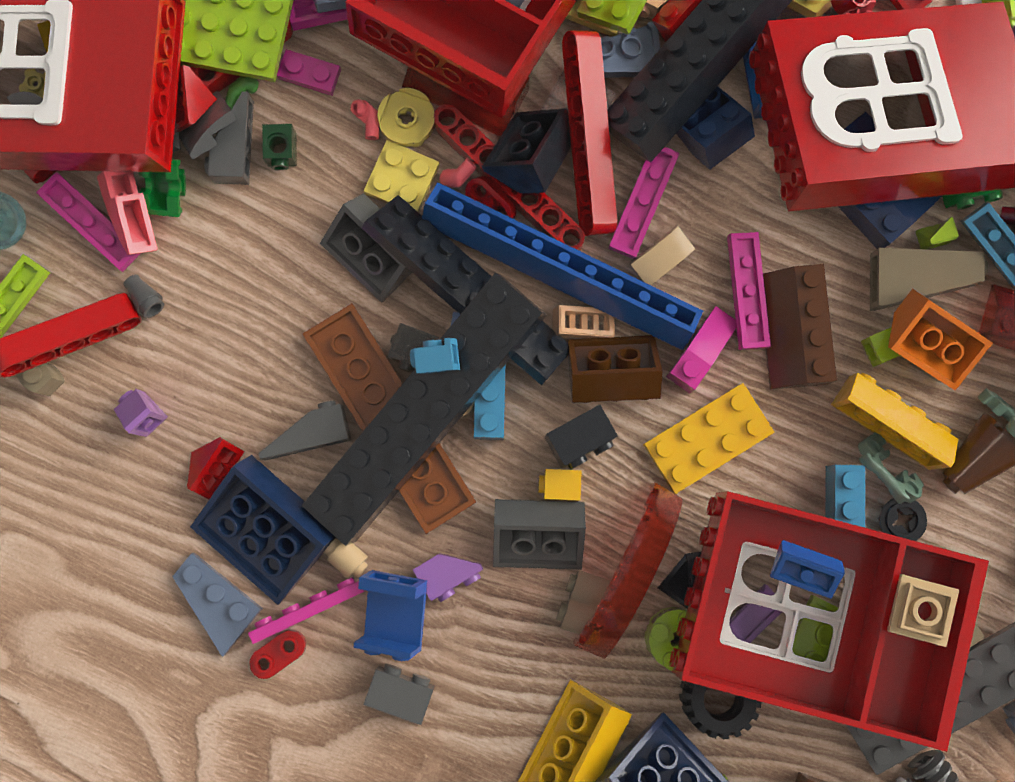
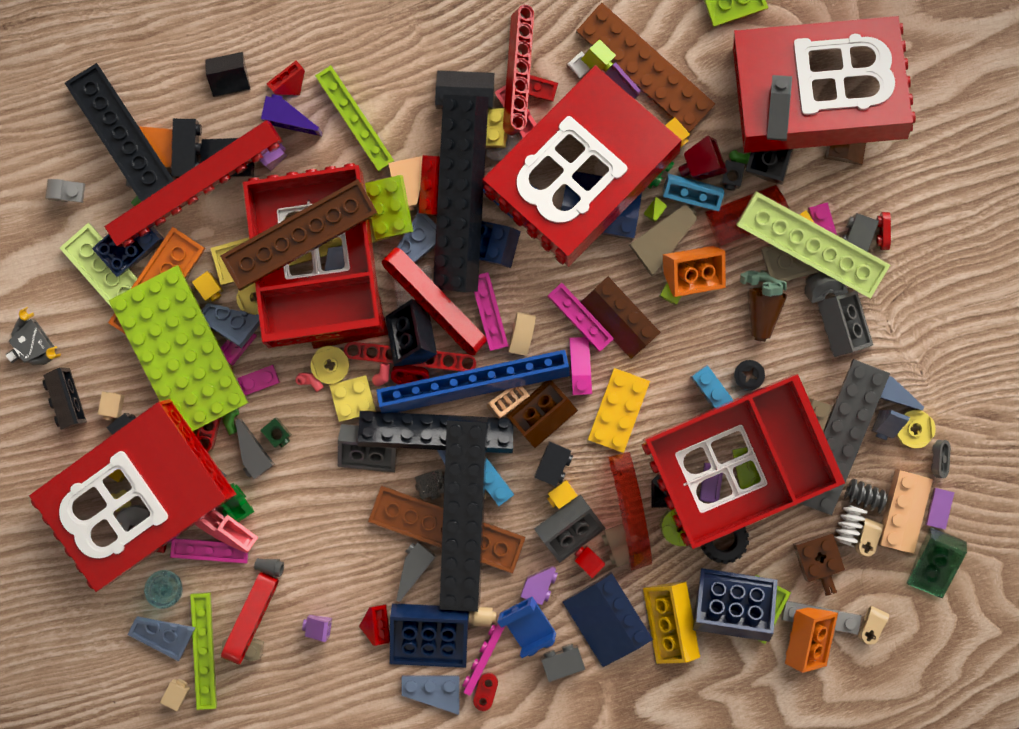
camera: 30 degrees left, 5 degrees up
(192, 99) = (215, 446): red slope -> none
(199, 136) = (229, 453): dark grey slope -> none
(436, 357) = (451, 485): dark azure brick -> none
(497, 685) = (607, 620): none -> dark blue slope
(531, 592) = (589, 561): none -> red slope
(807, 569) = (712, 448): blue slope -> none
(896, 422) = (707, 327): yellow slope -> none
(901, 487) = (736, 358): sand green helmet -> none
(905, 616) = (771, 419): tan piece -> none

